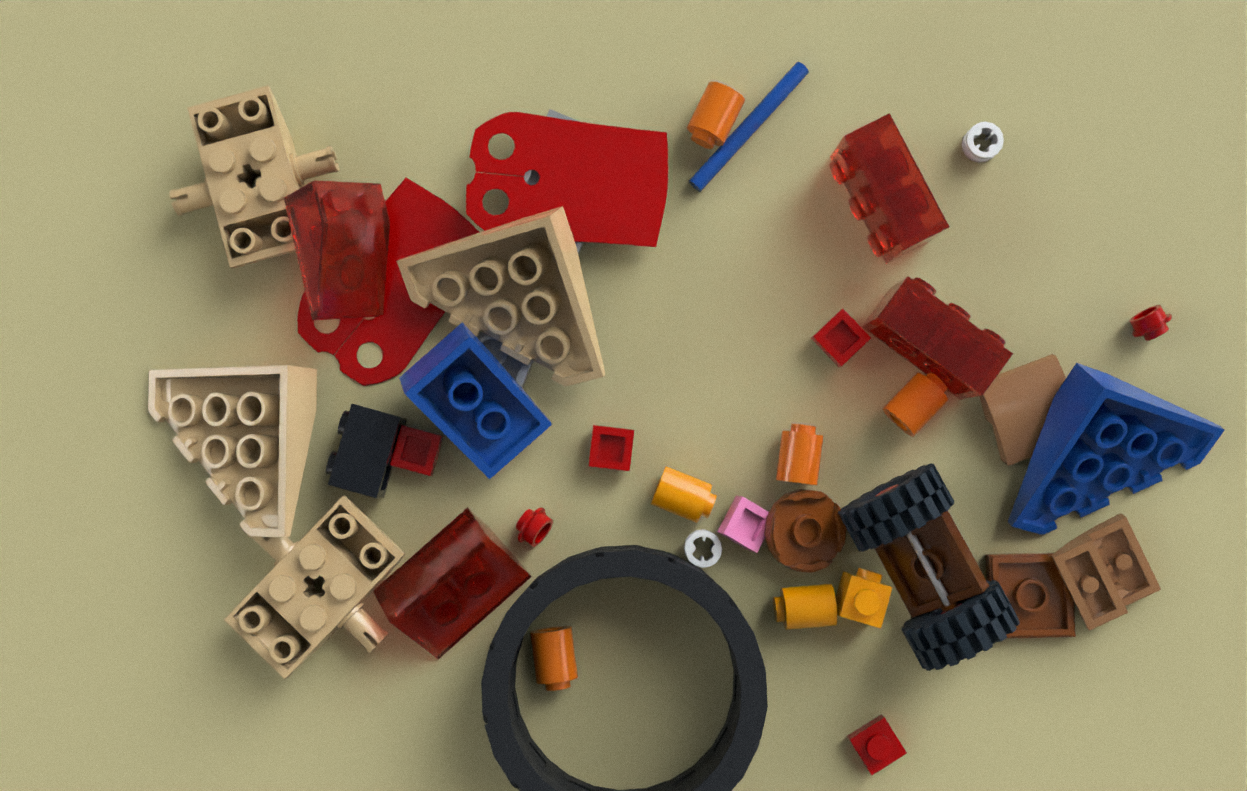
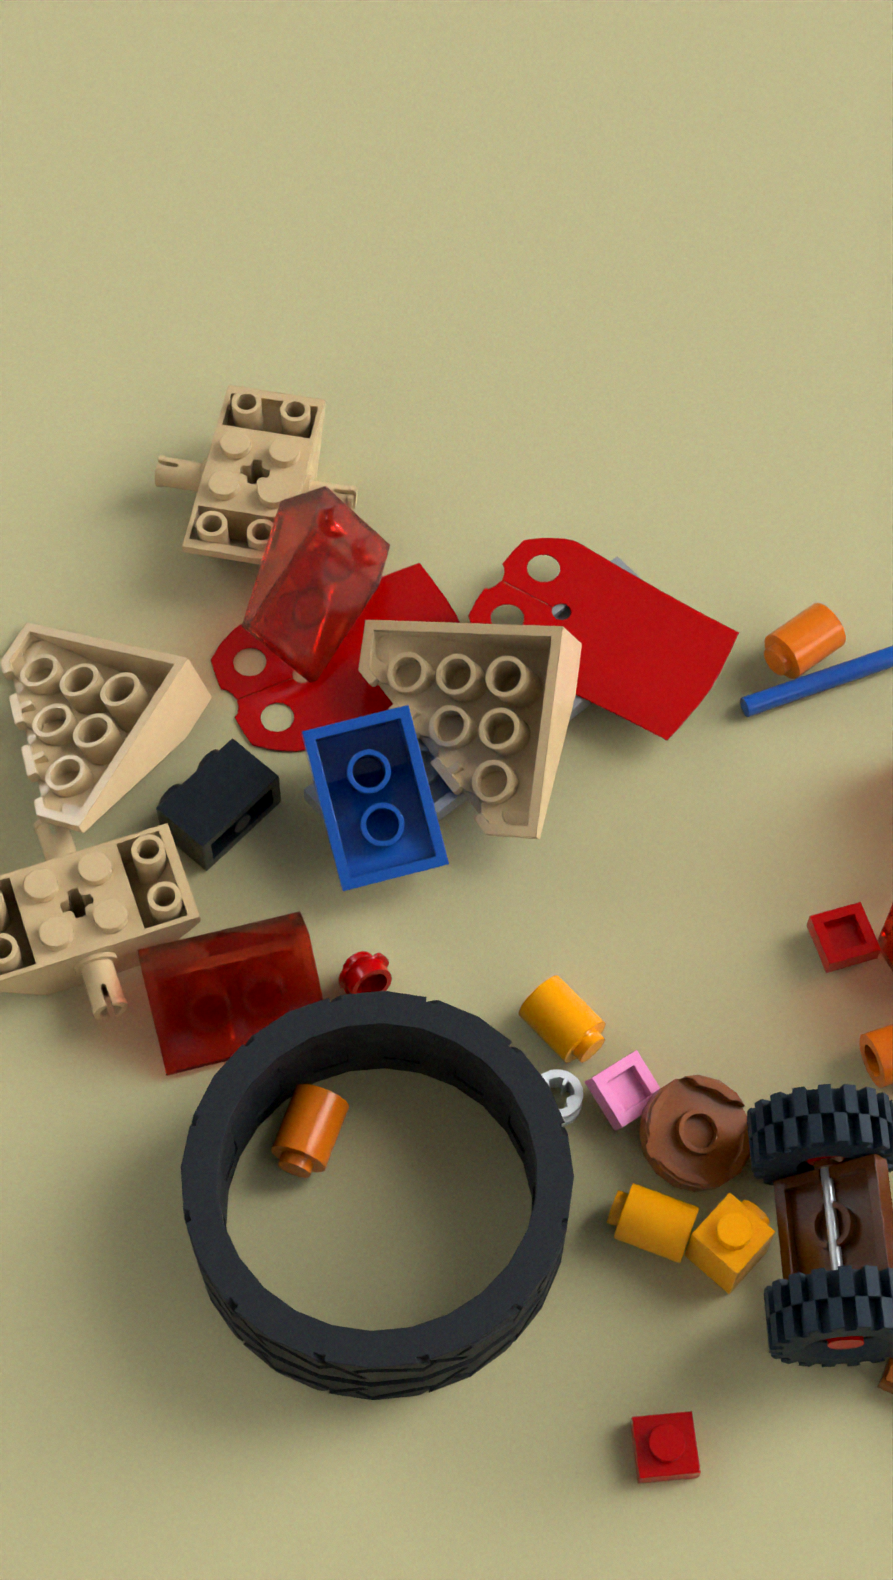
camera: 25 degrees right, 25 degrees down
(416, 450) = (275, 831): red plate -> none
(611, 448) = (504, 932): red plate -> none
(800, 455) = (730, 1042): orange brick -> none

